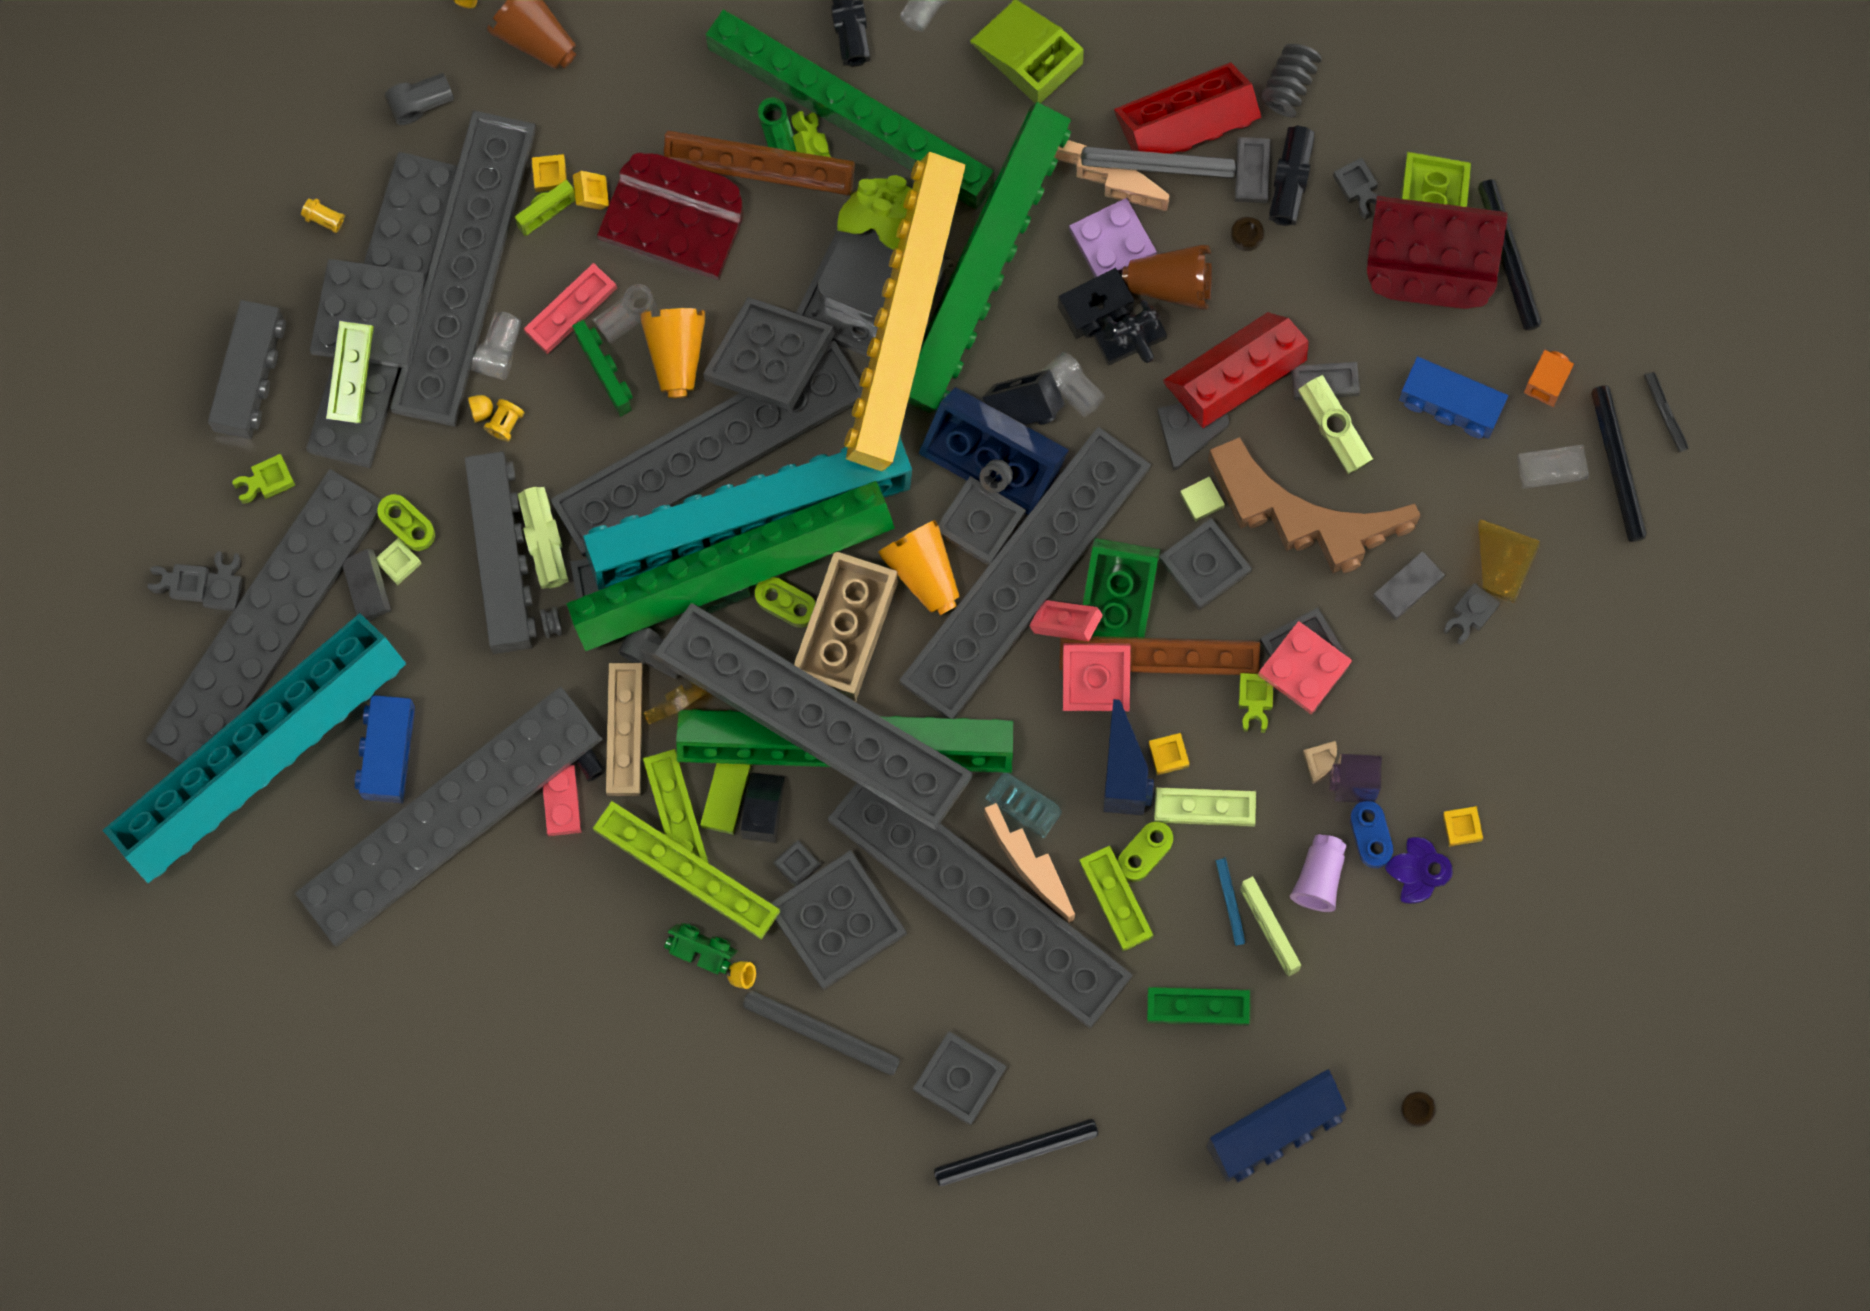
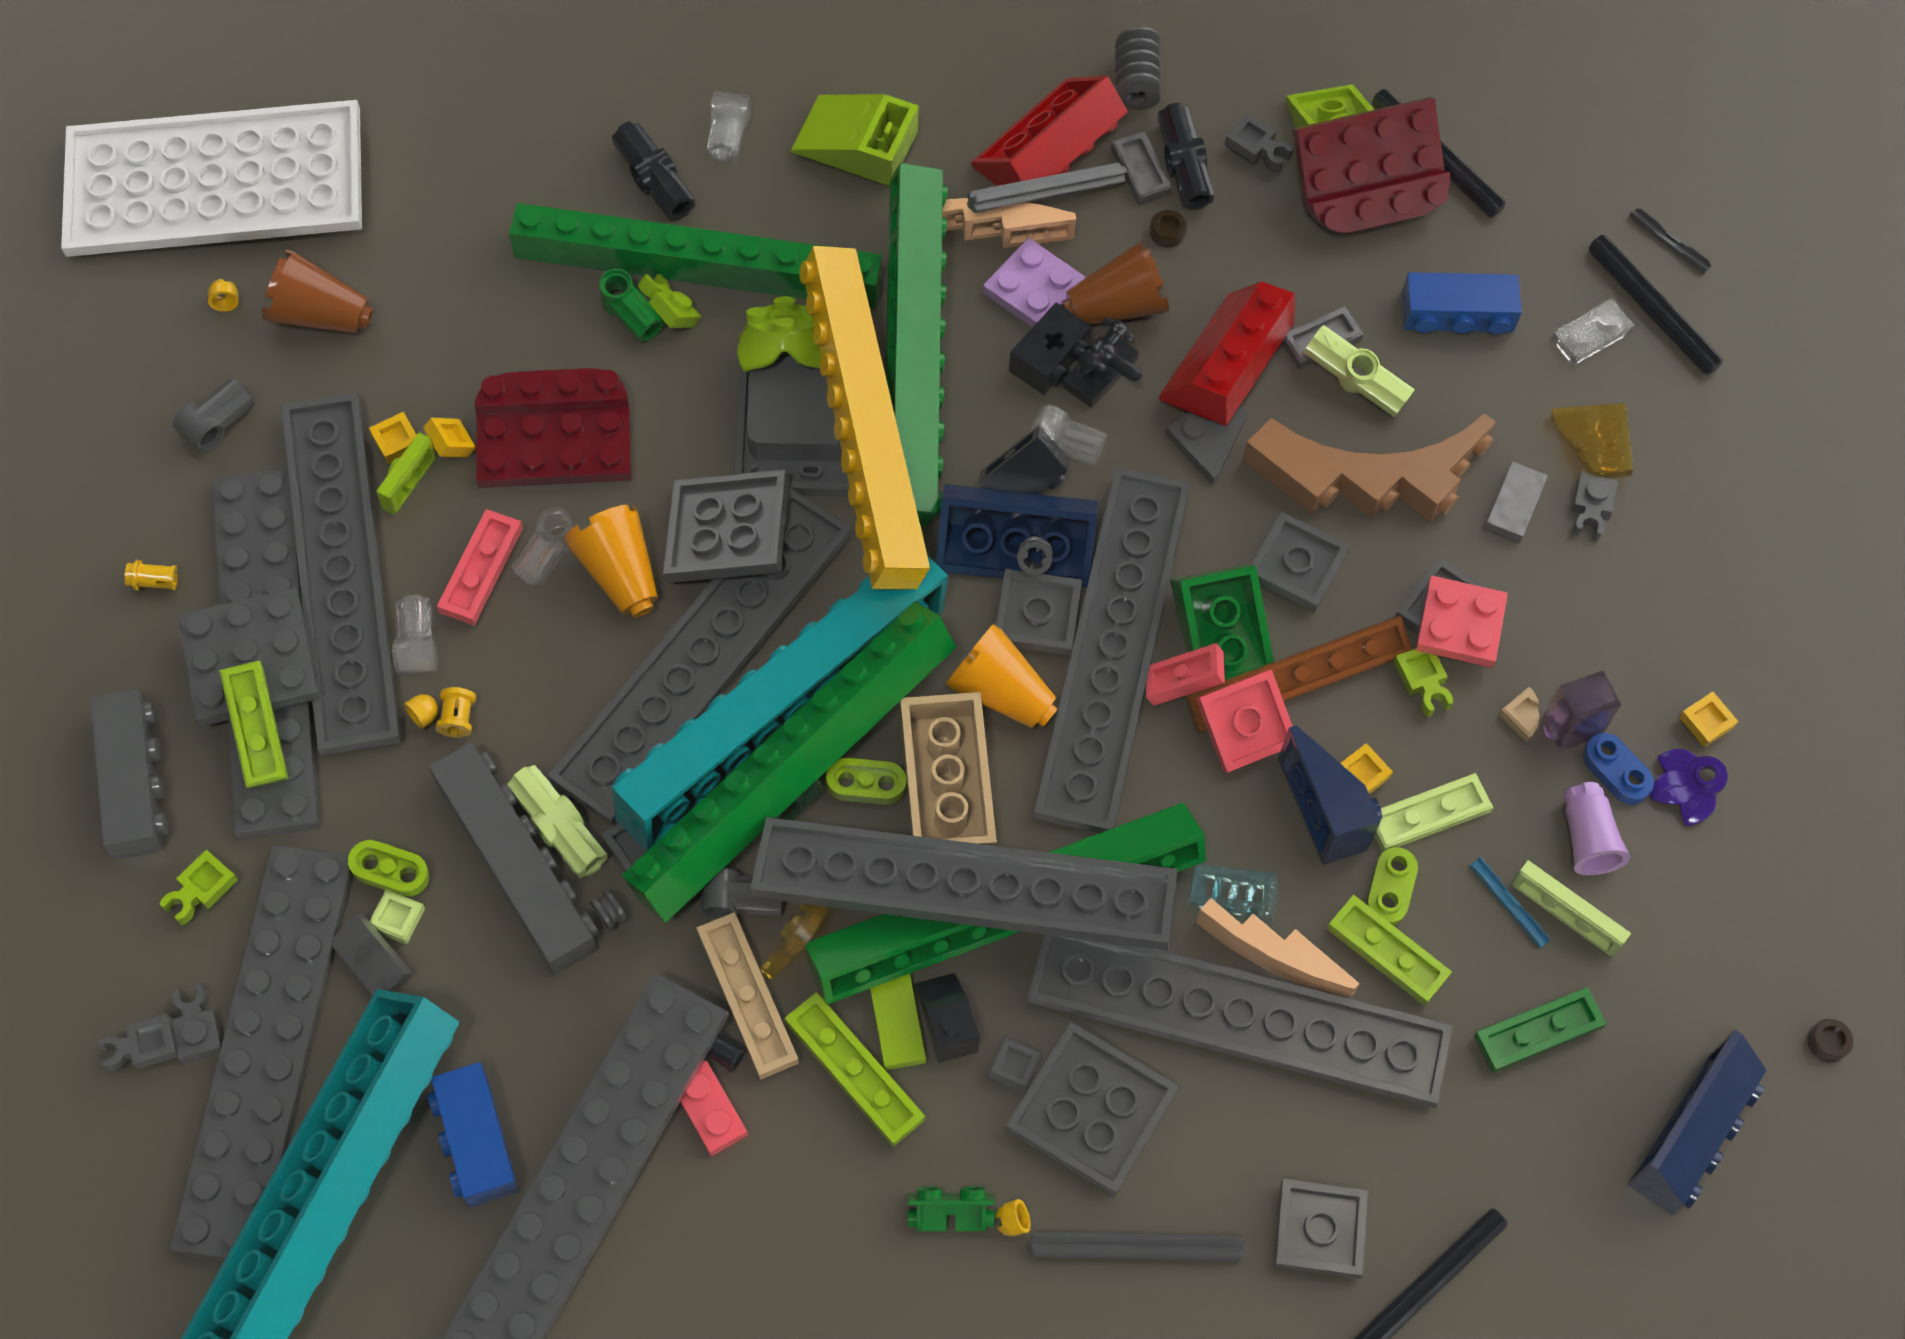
camera: 30 degrees left, 10 degrees down
(603, 367) = (545, 613): green plate -> none
(686, 870) = (896, 1122): lime plate -> none
(761, 162) = (628, 339): dark orange tile -> none
(1202, 499) = (1259, 499): yellowish green tile -> none
(1549, 377) = (1544, 248): orange brick -> none

